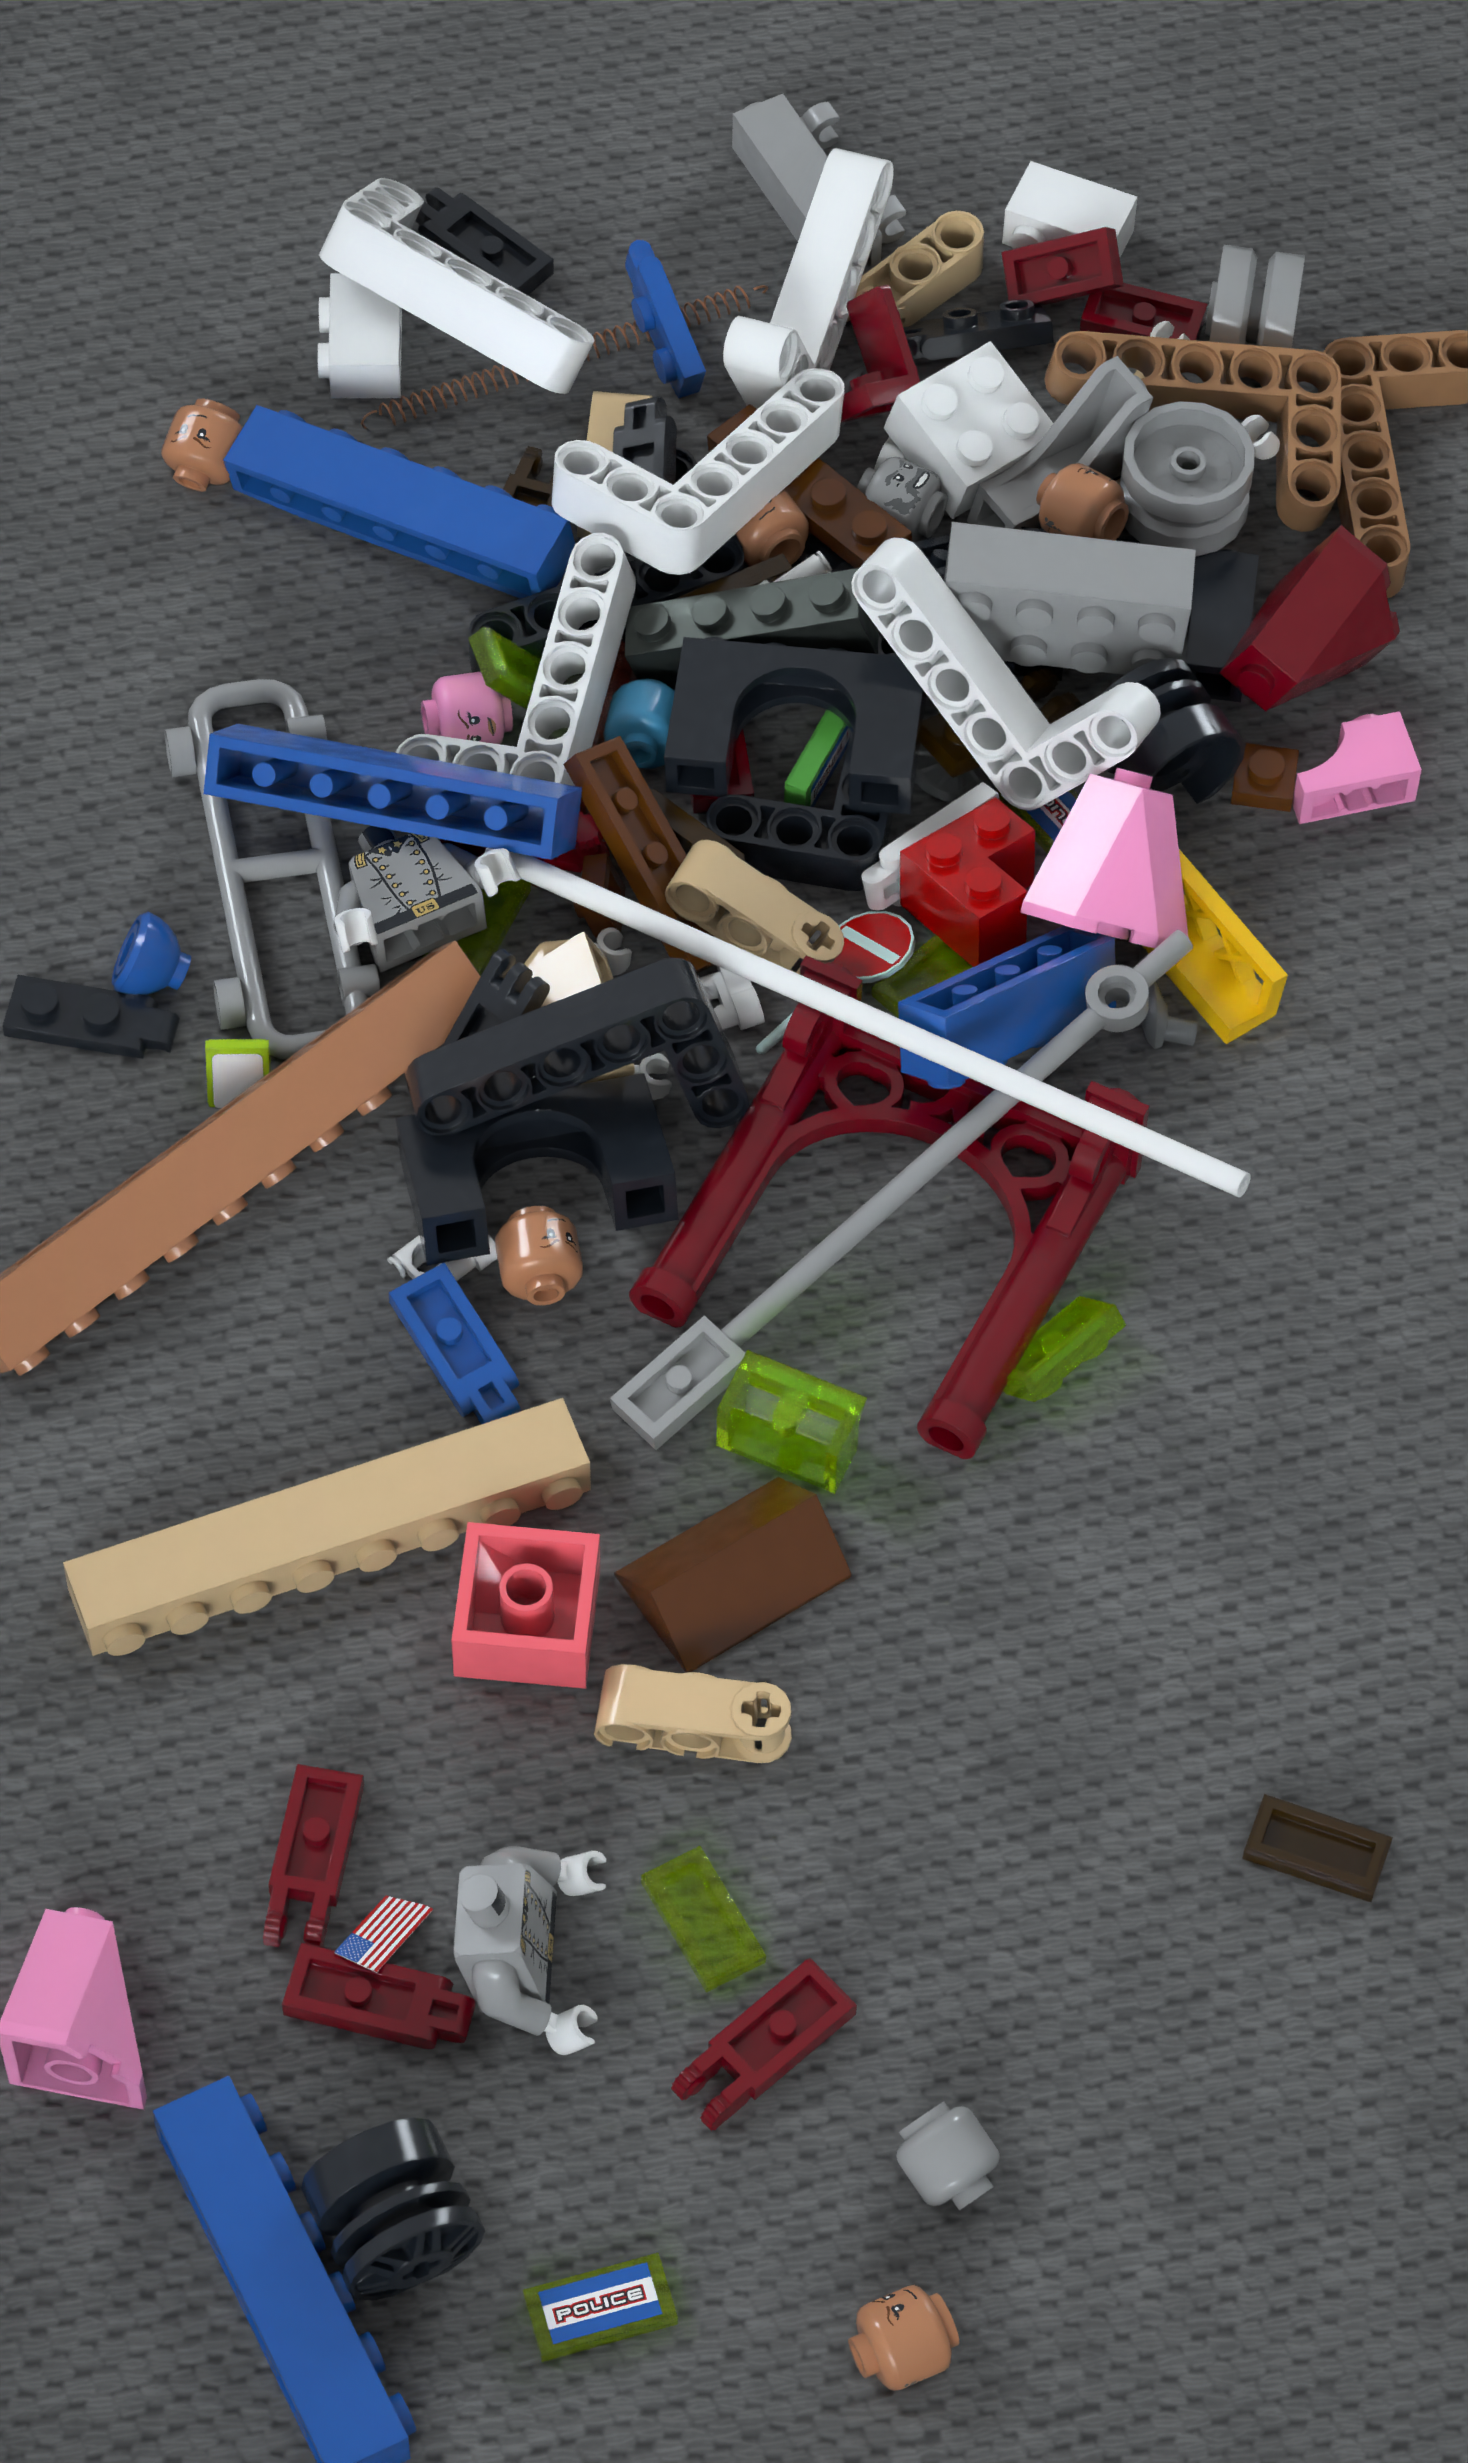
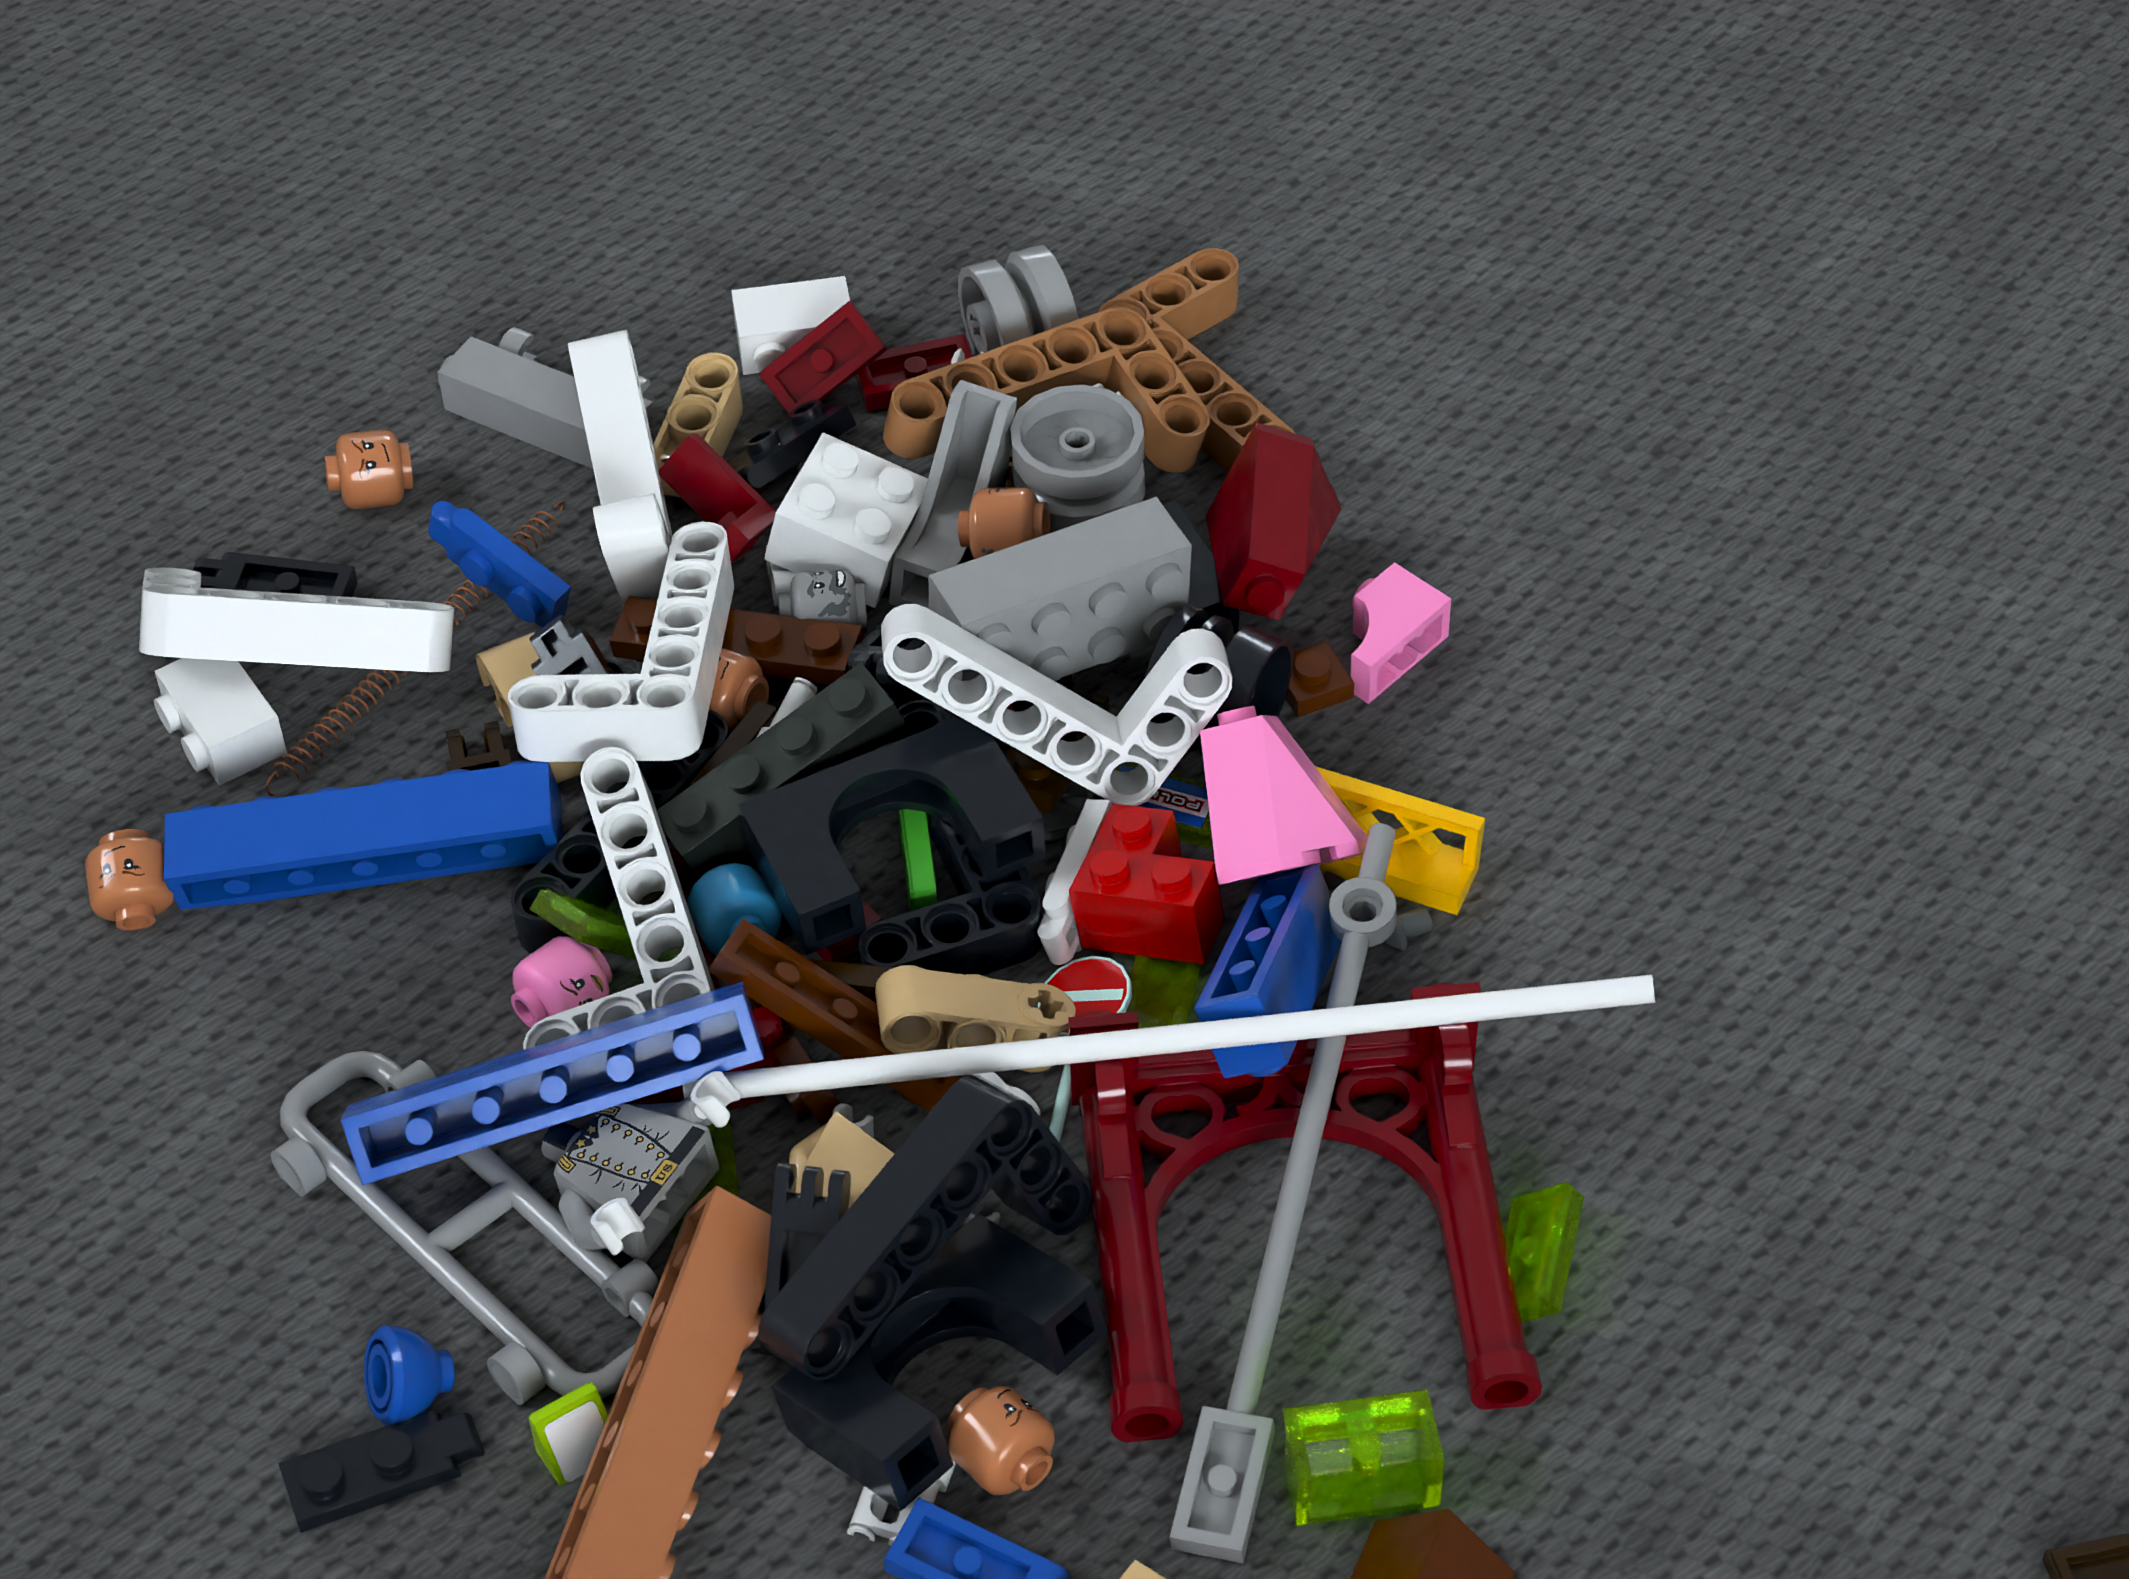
camera: 30 degrees left, 10 degrees down
(624, 175) = (369, 469): none -> nougat head

